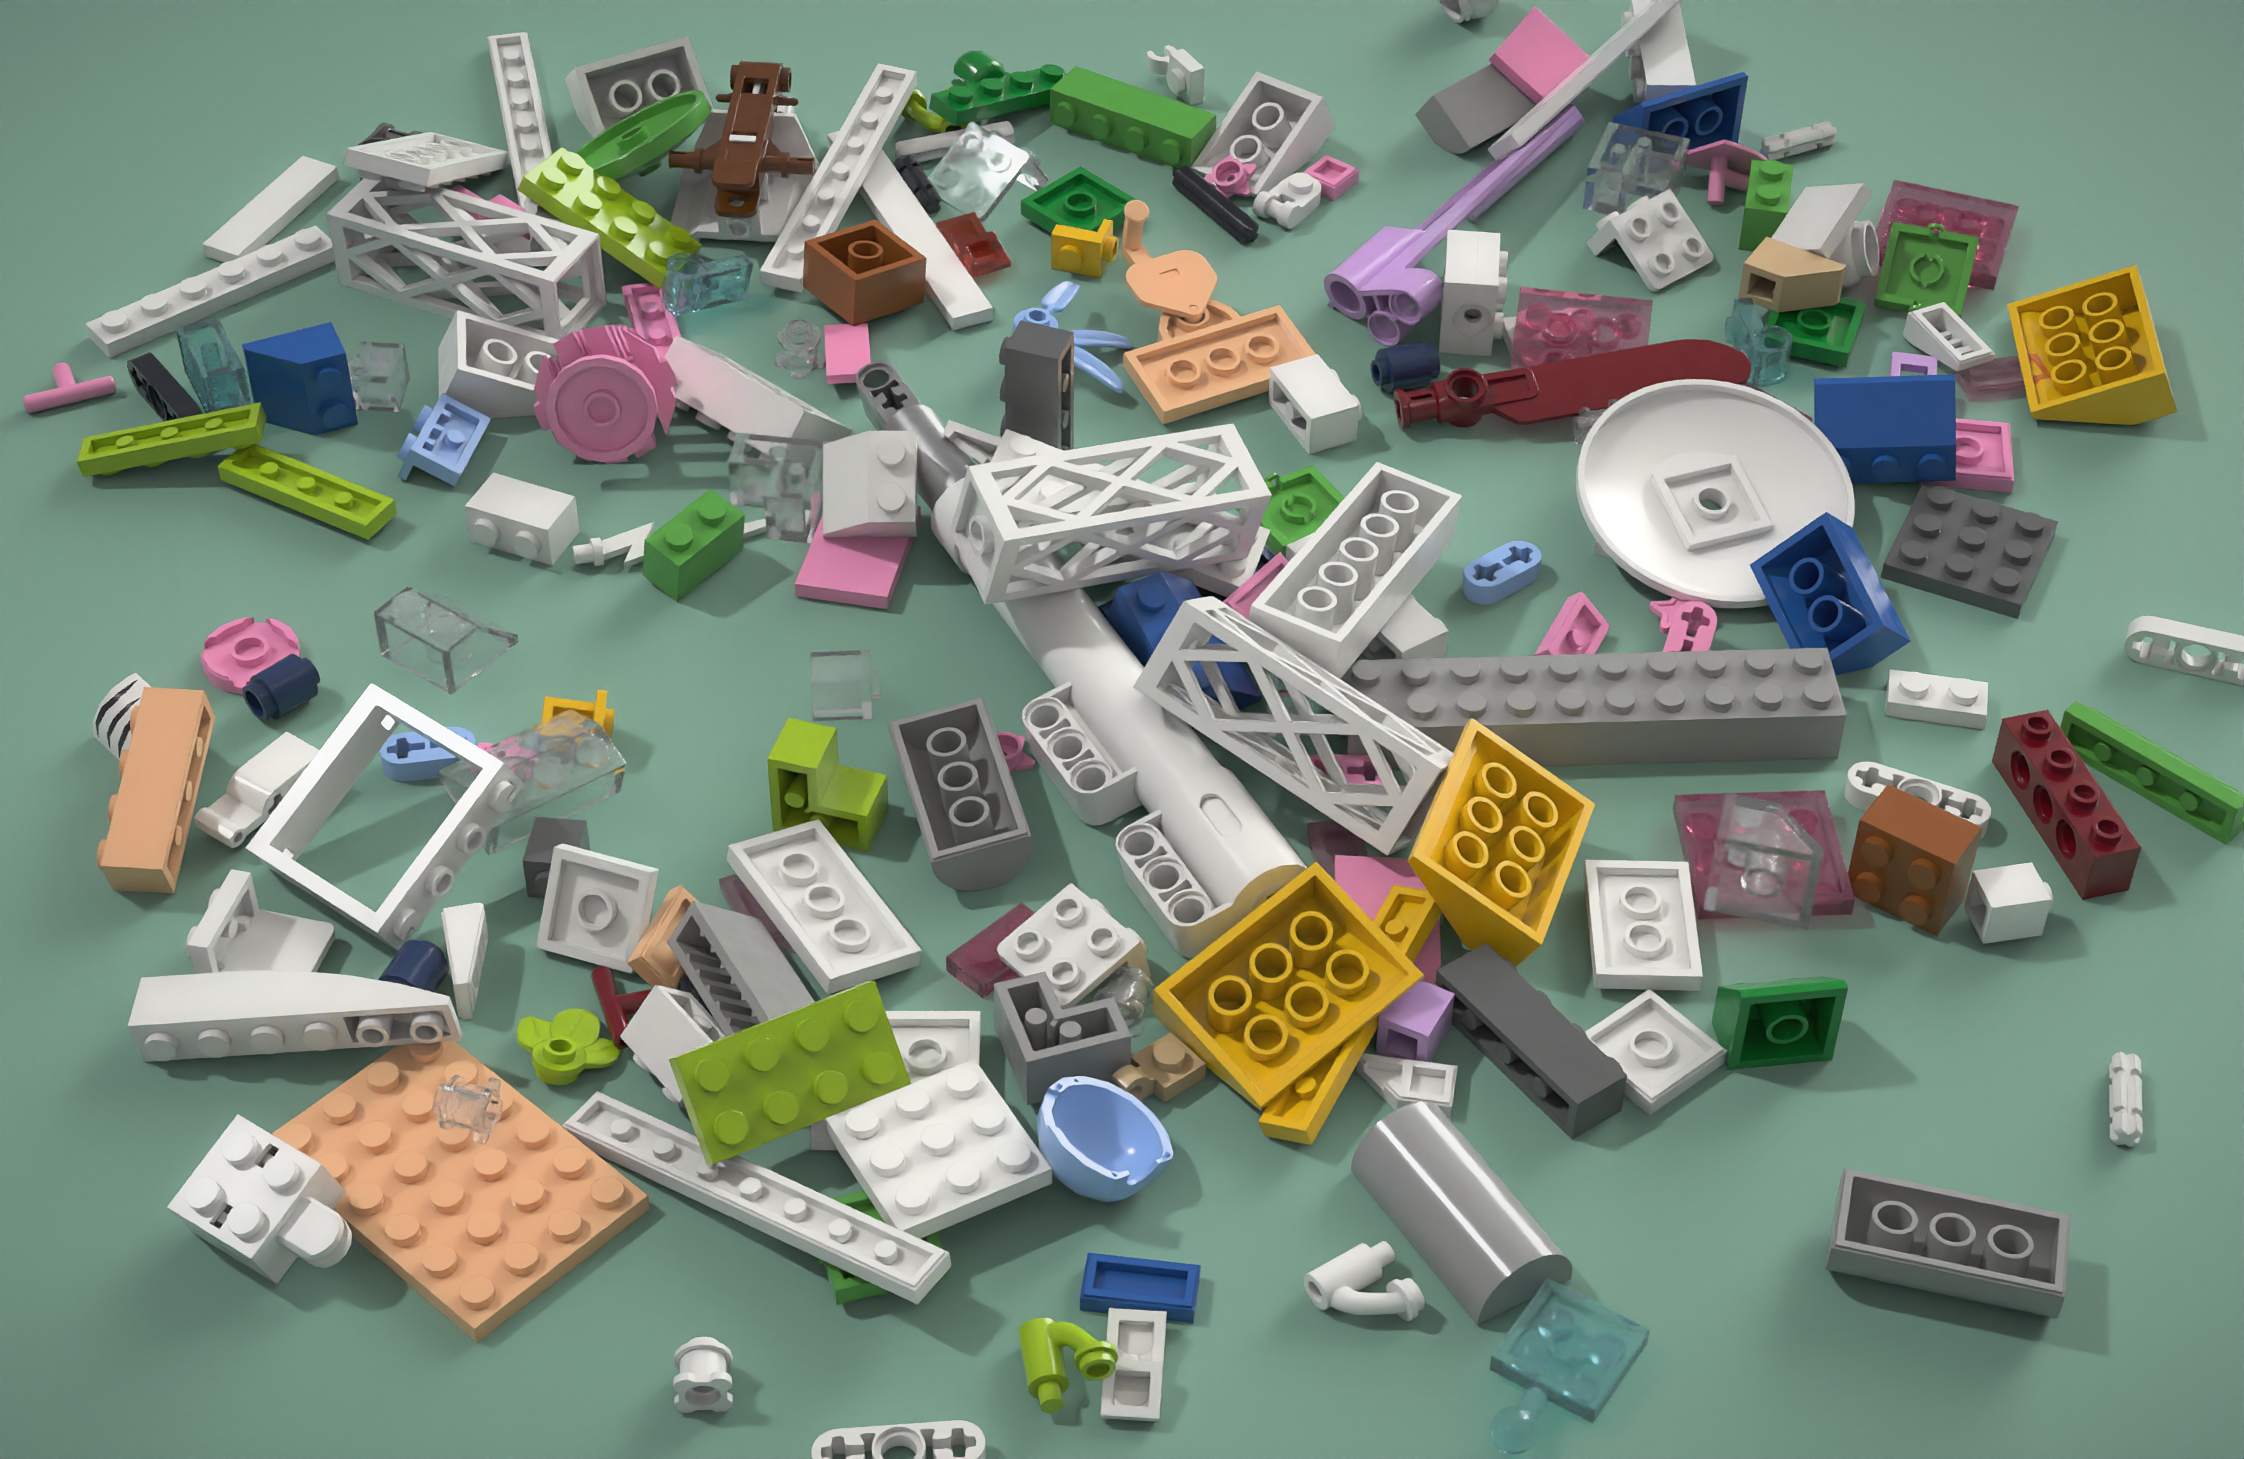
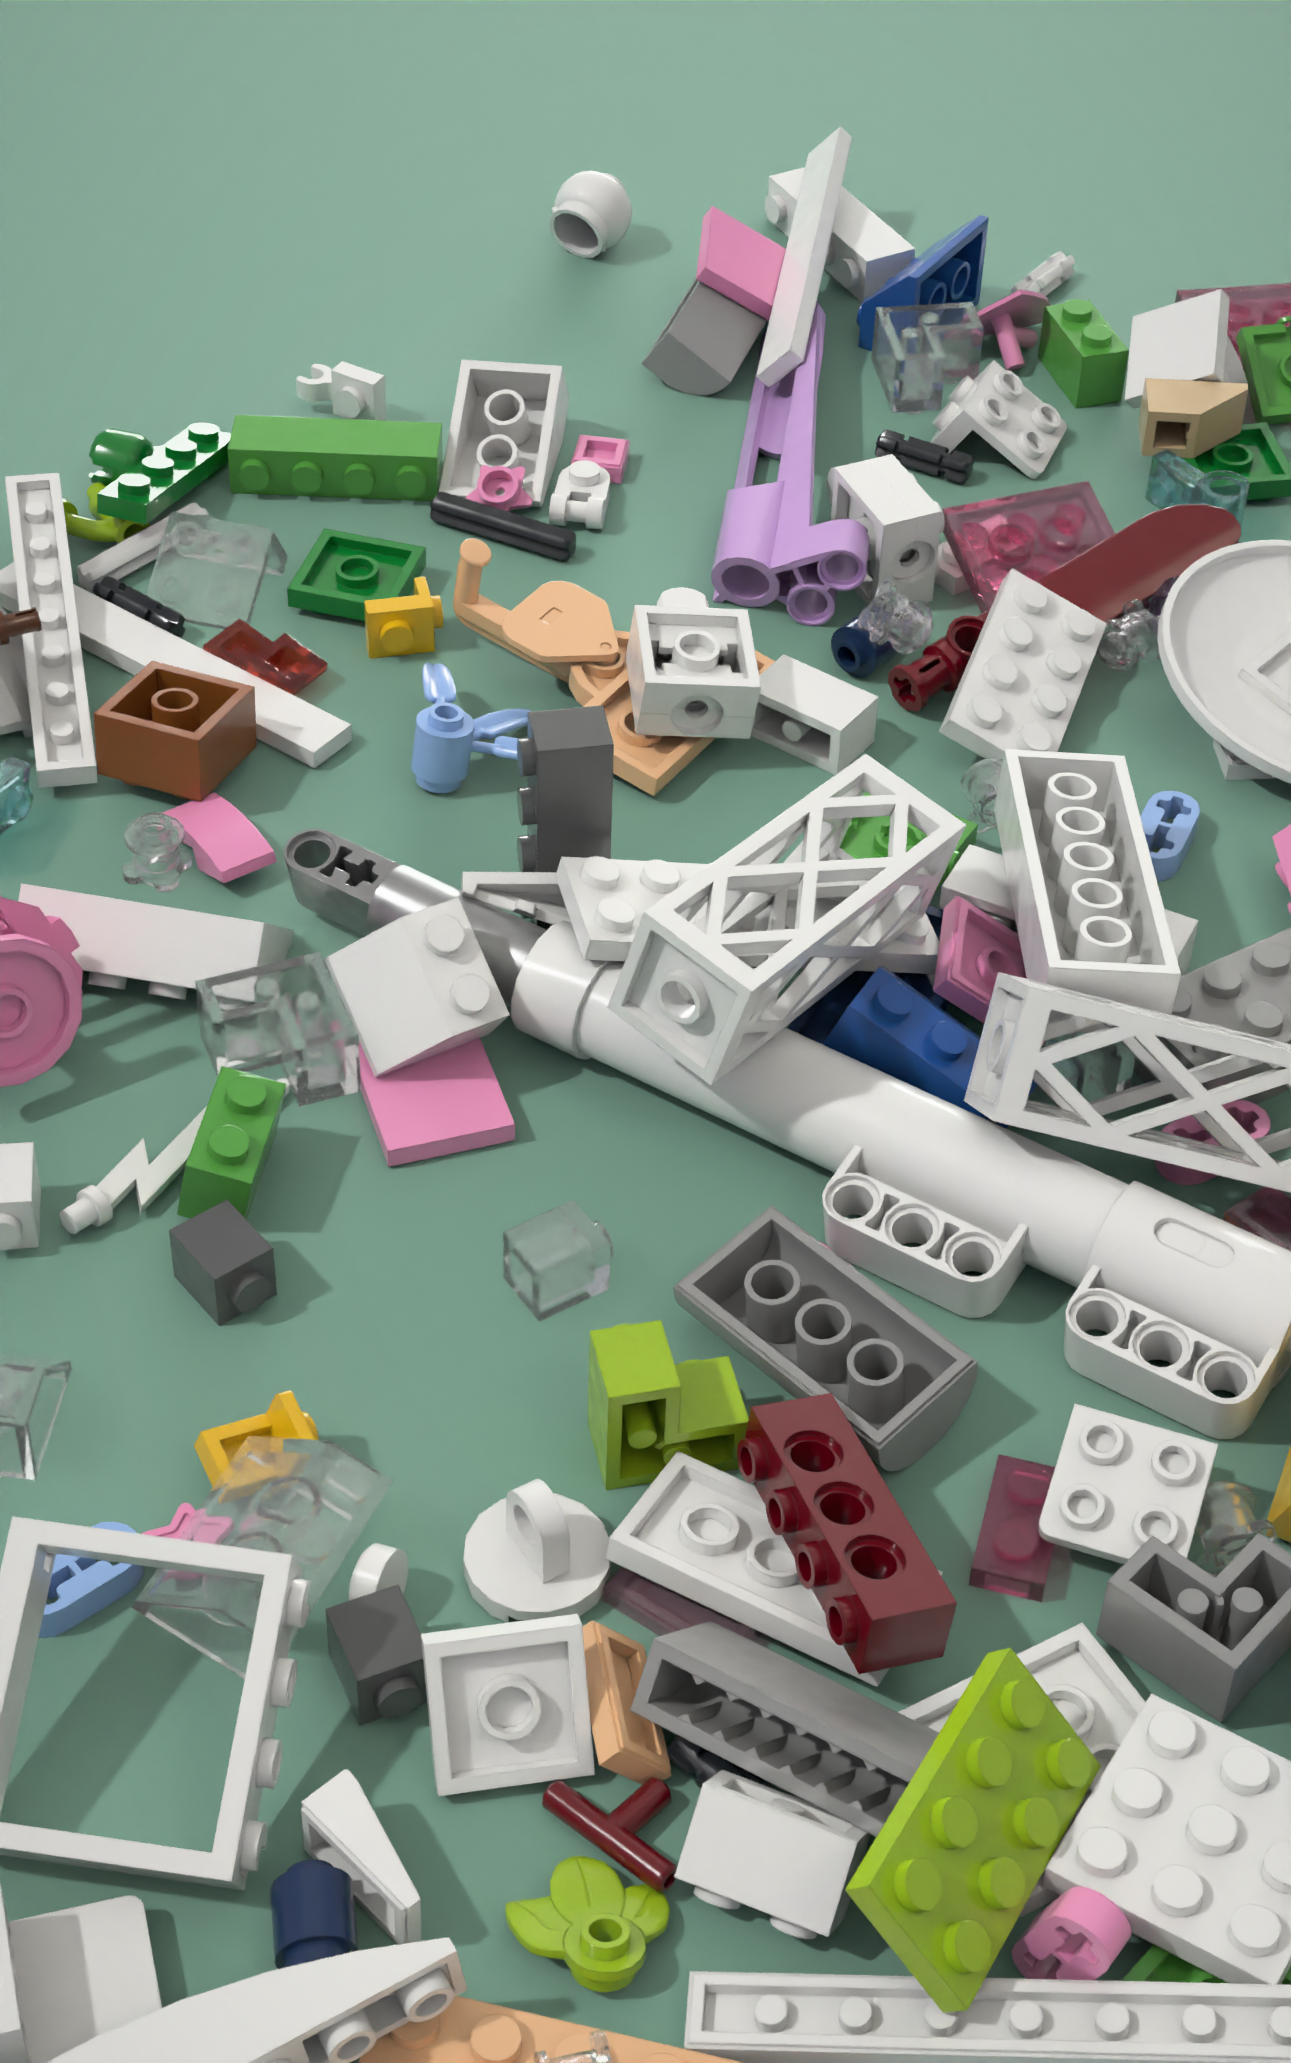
camera: 30 degrees left, 0 degrees up
(599, 818) = (379, 1569): none -> white tile
(641, 610) = (223, 1262): none -> dark grey brick
(692, 844) = (536, 1556): none -> white tile
(809, 1158) = (1072, 1938): none -> bright pink beam
(864, 895) = (846, 1533): none -> dark red brick
(1230, 339) = (692, 668): none -> white brick
(1415, 356) = (896, 619): none -> clear brick
(1485, 424) = (1023, 671): none -> white plate
(1575, 248) = (925, 456): none -> black axle

